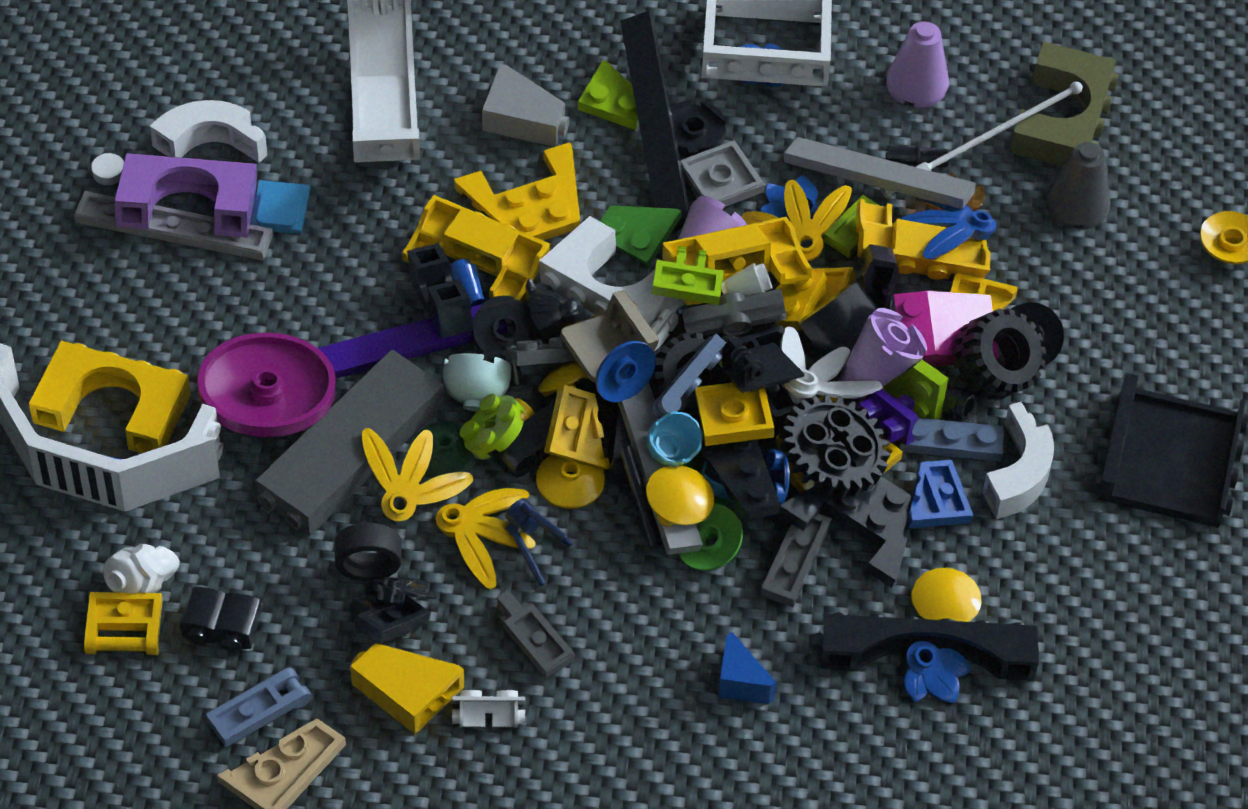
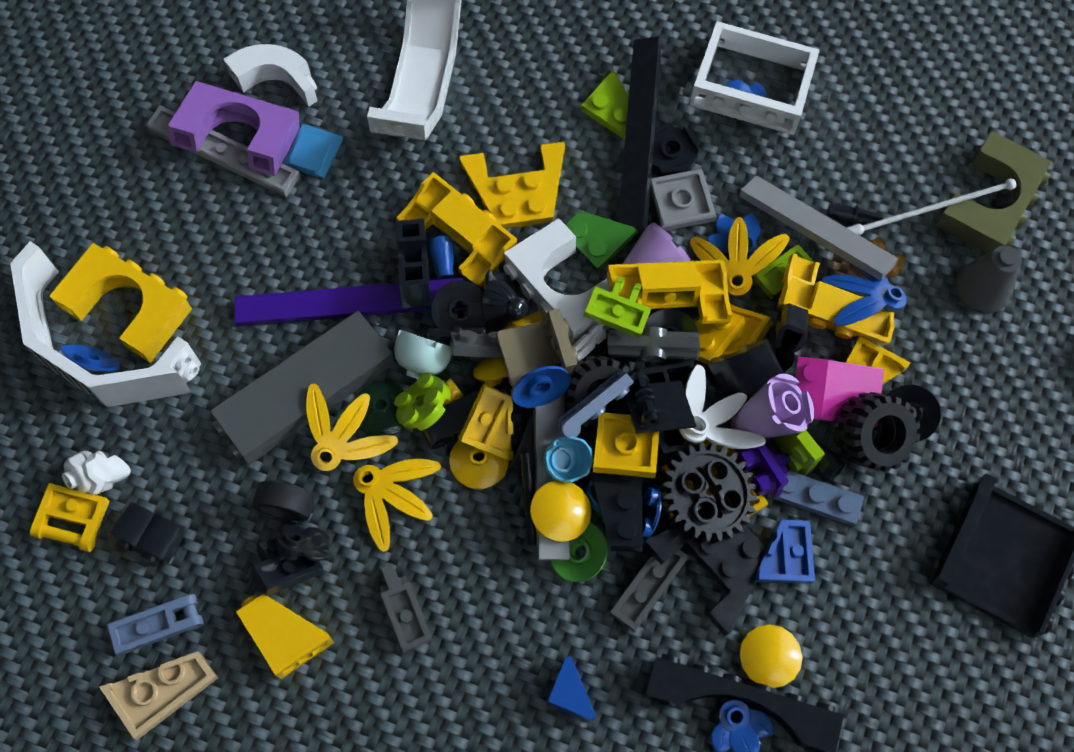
camera: 15 degrees right, 15 degrees up
(107, 168) = (182, 86): white tile -> none
(267, 384) = (244, 322): magenta dish -> none
(475, 706) = (335, 668): white hinge -> none
(523, 110) = (533, 103): light grey slope -> none
(526, 519) = (428, 497): dark blue plant -> none
(748, 281) = (673, 318): white cone -> none
(919, 68) = (877, 134): lavender cone -> none
(1020, 484) = (862, 560): white arch -> none

